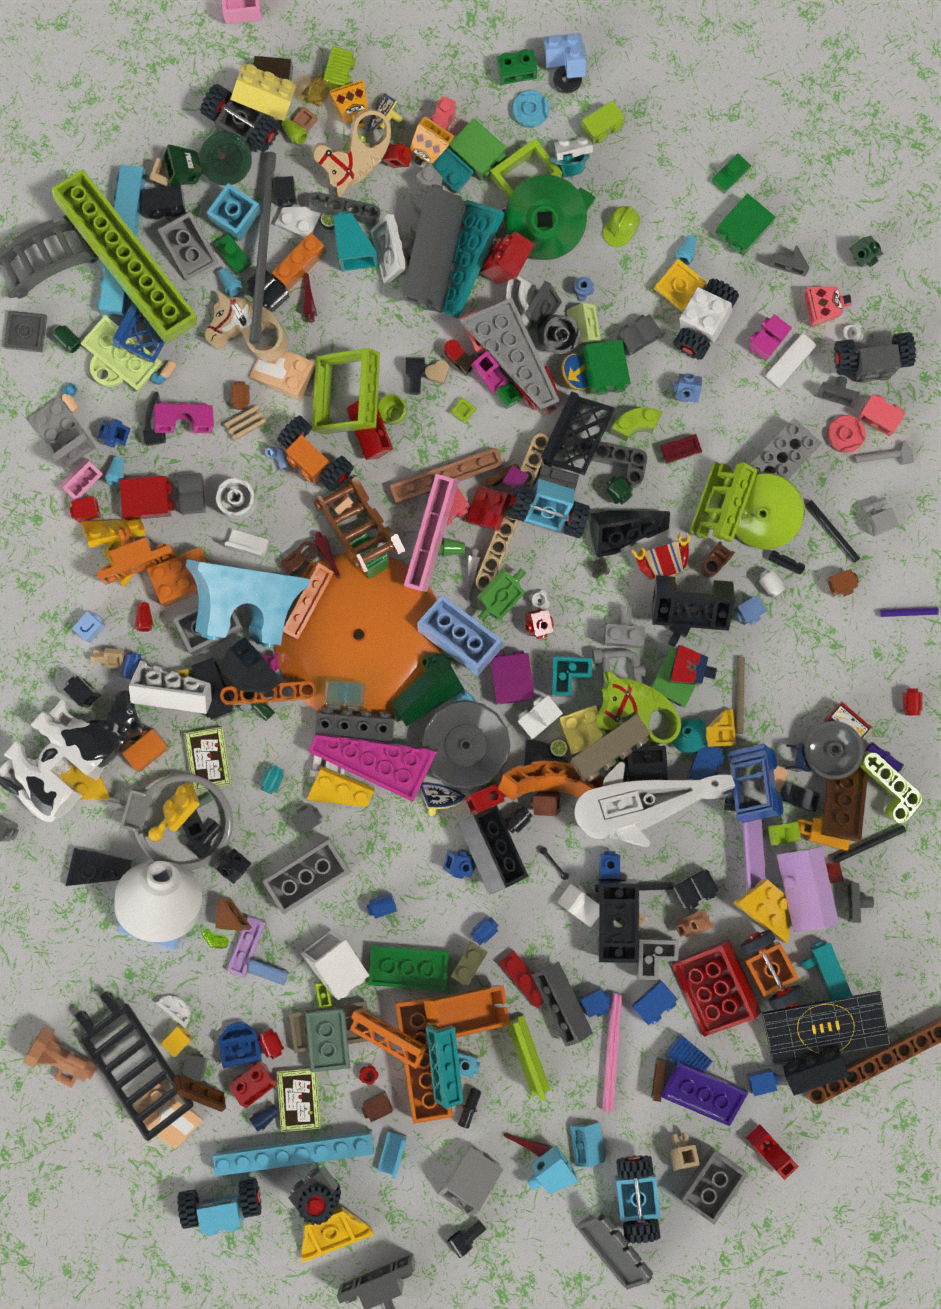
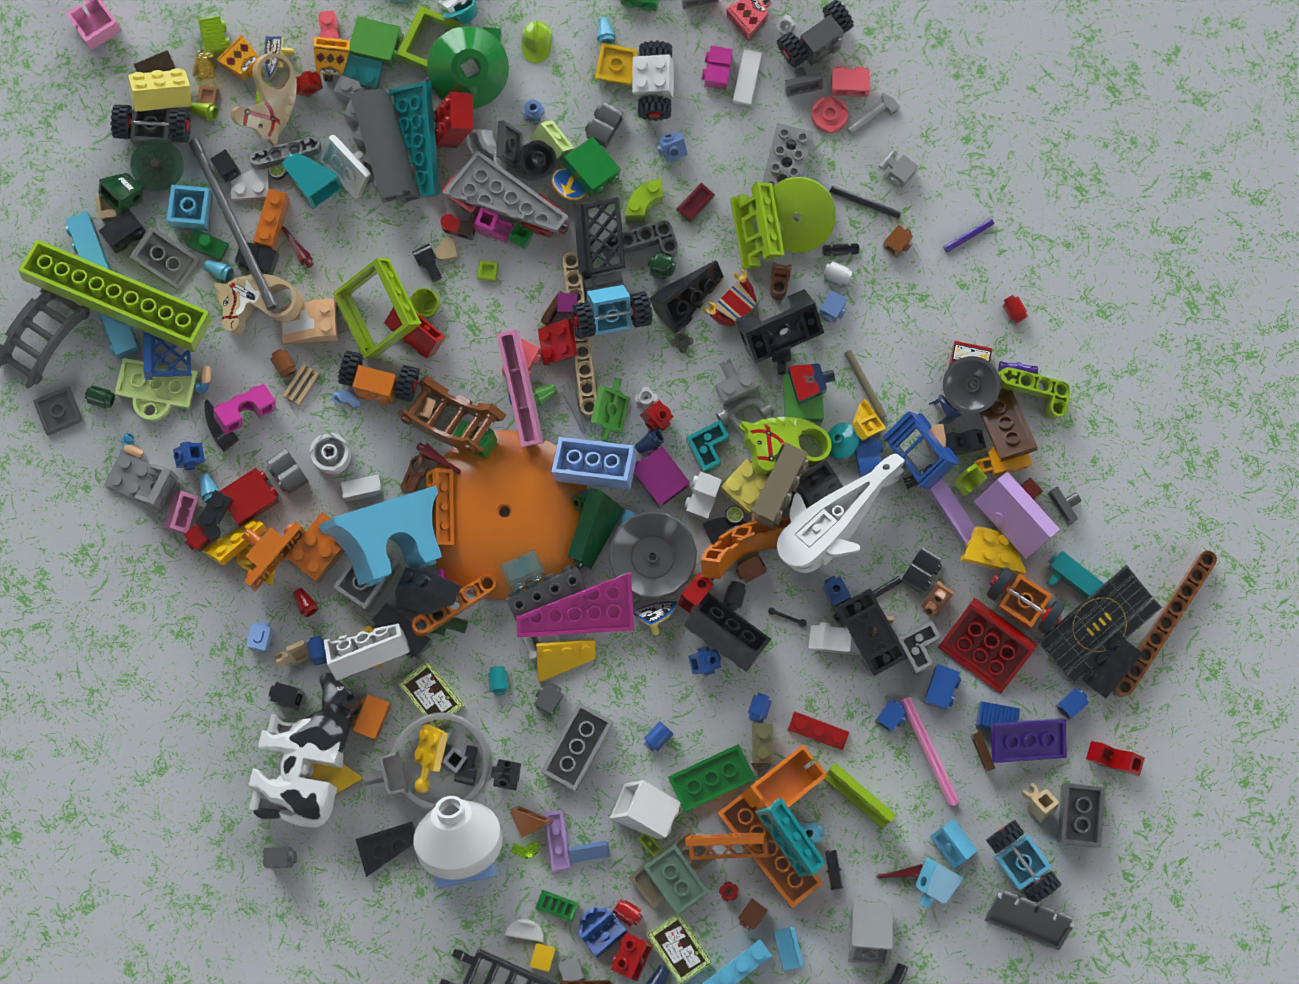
camera: 30 degrees left, 5 degrees down
(105, 497) = (213, 514): none -> black hinge
(218, 1019) = (571, 915): none -> green slope
(458, 470) = (516, 320): nougat plate -> none
(520, 642) = (651, 440): none -> dark blue cone
(562, 1004) = (862, 732): dark grey brick -> none
(869, 844) = (1048, 448): black bar -> none

